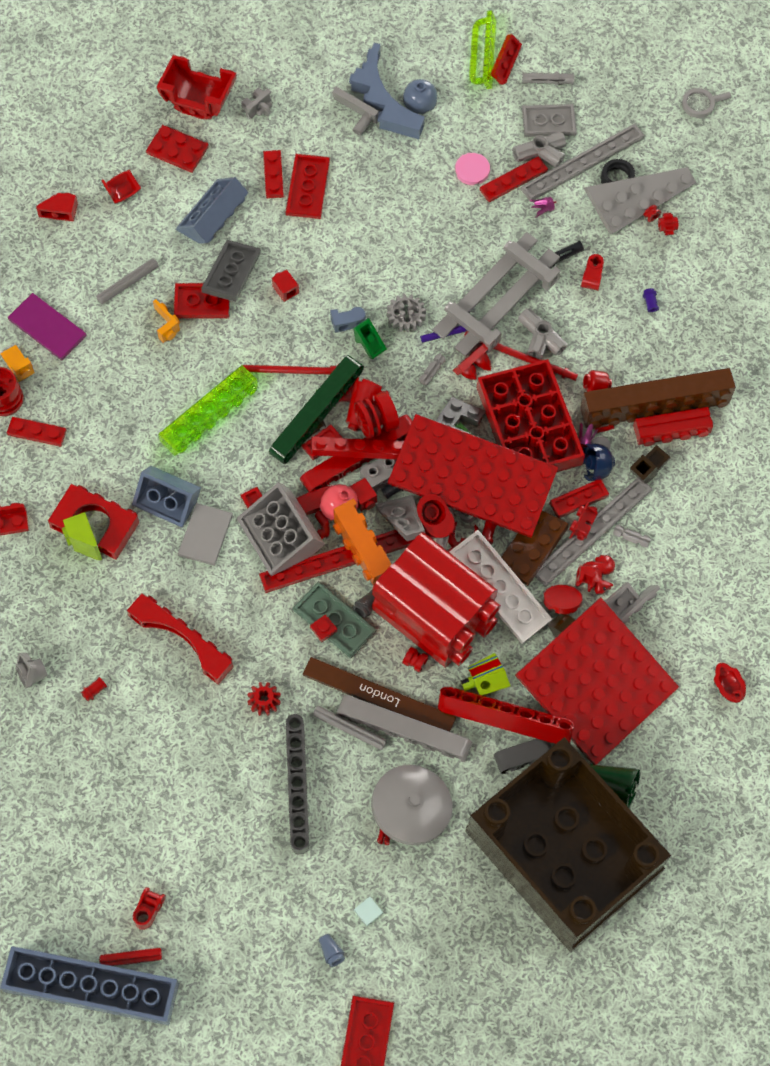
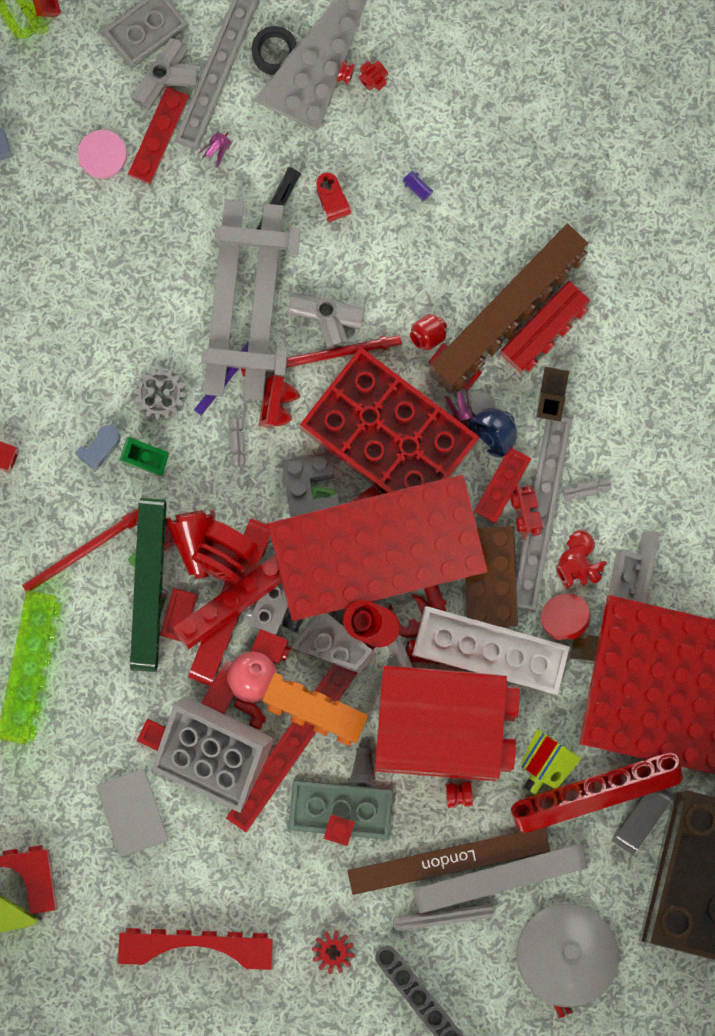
camera: 35 degrees left, 15 degrees up
(165, 495) = (57, 800): sand blue slope -> none

